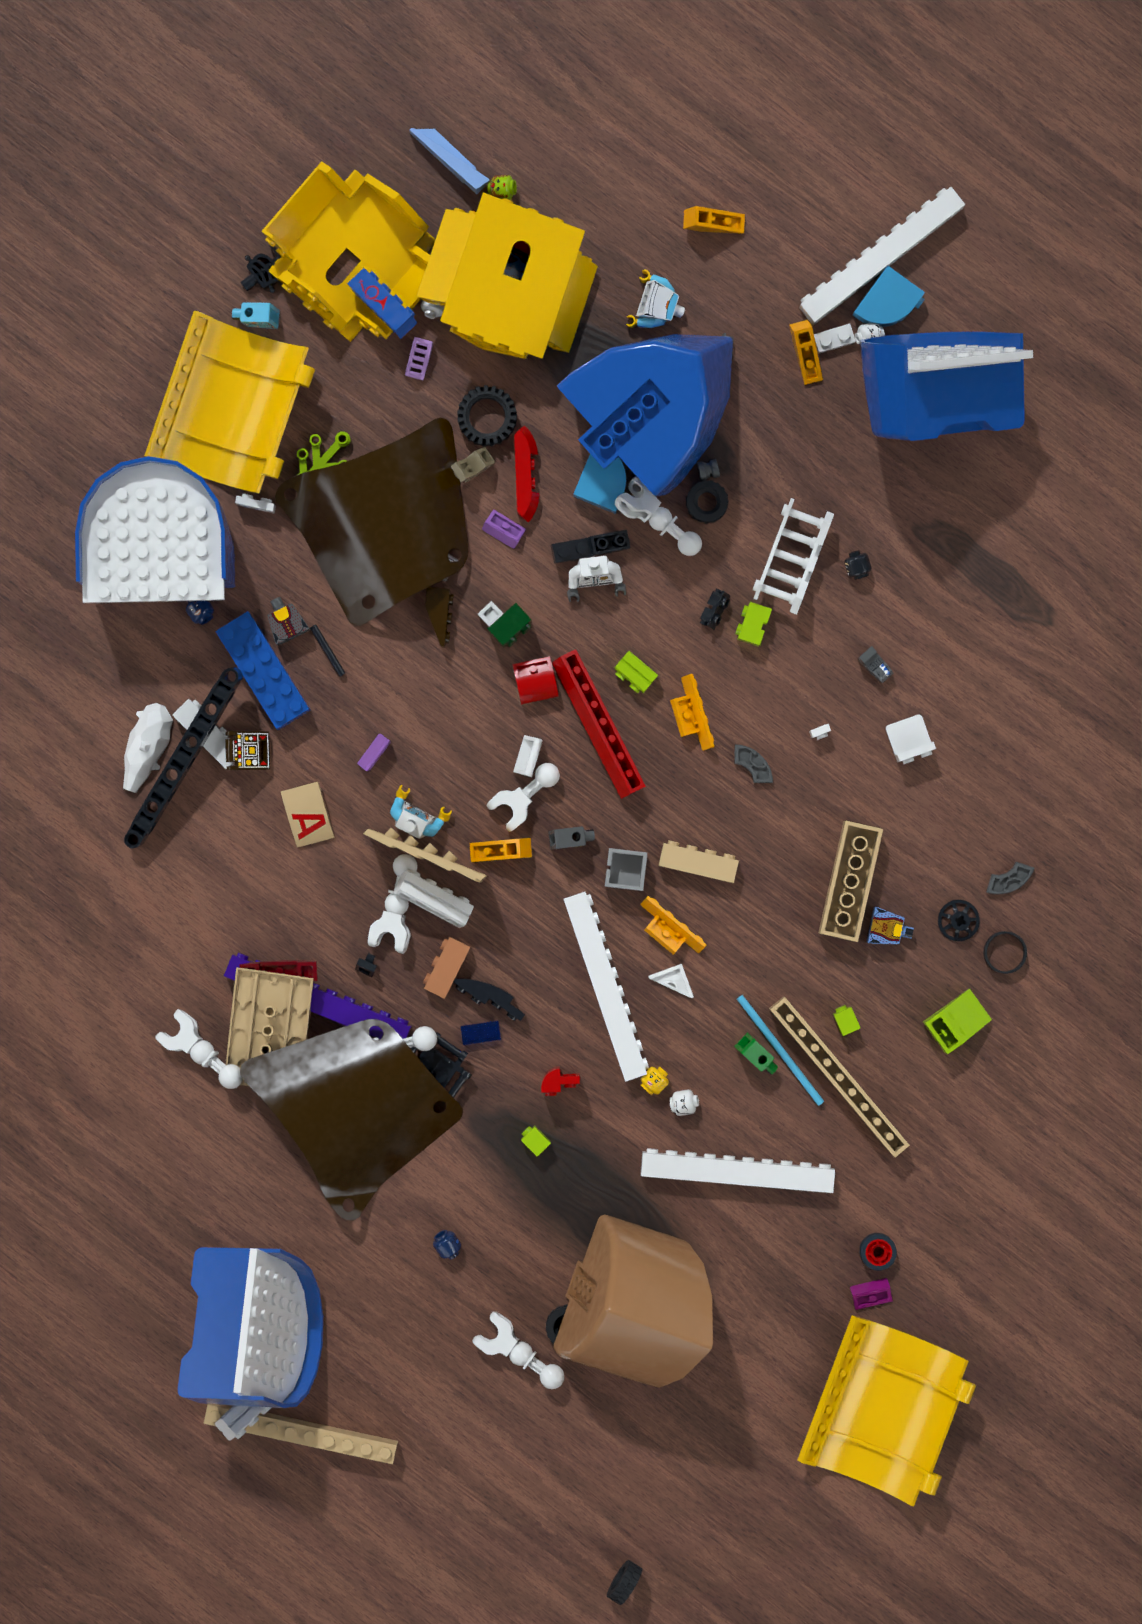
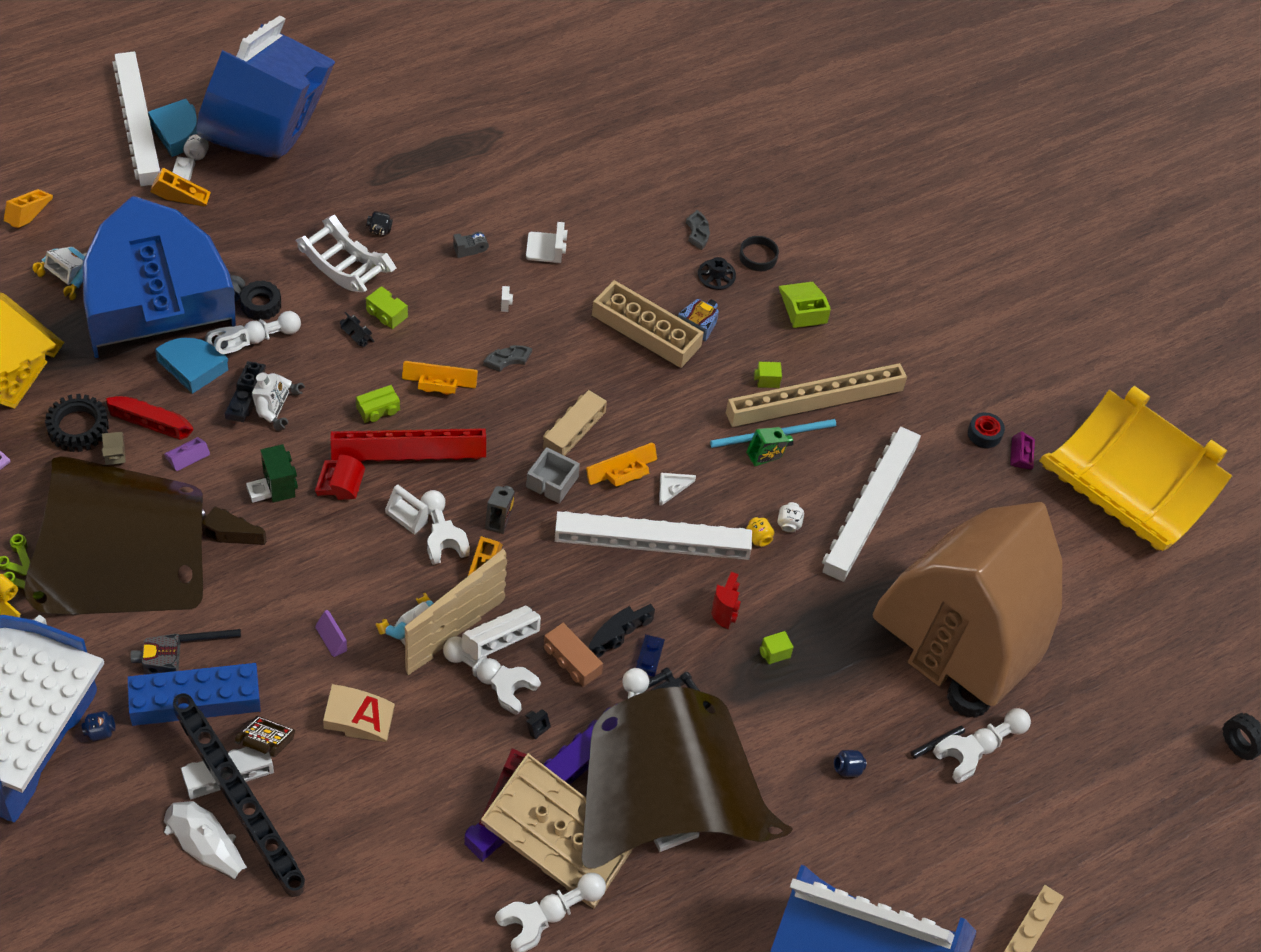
camera: 75 degrees left, 35 degrees down
(506, 1312) = (931, 745): none -> black bar

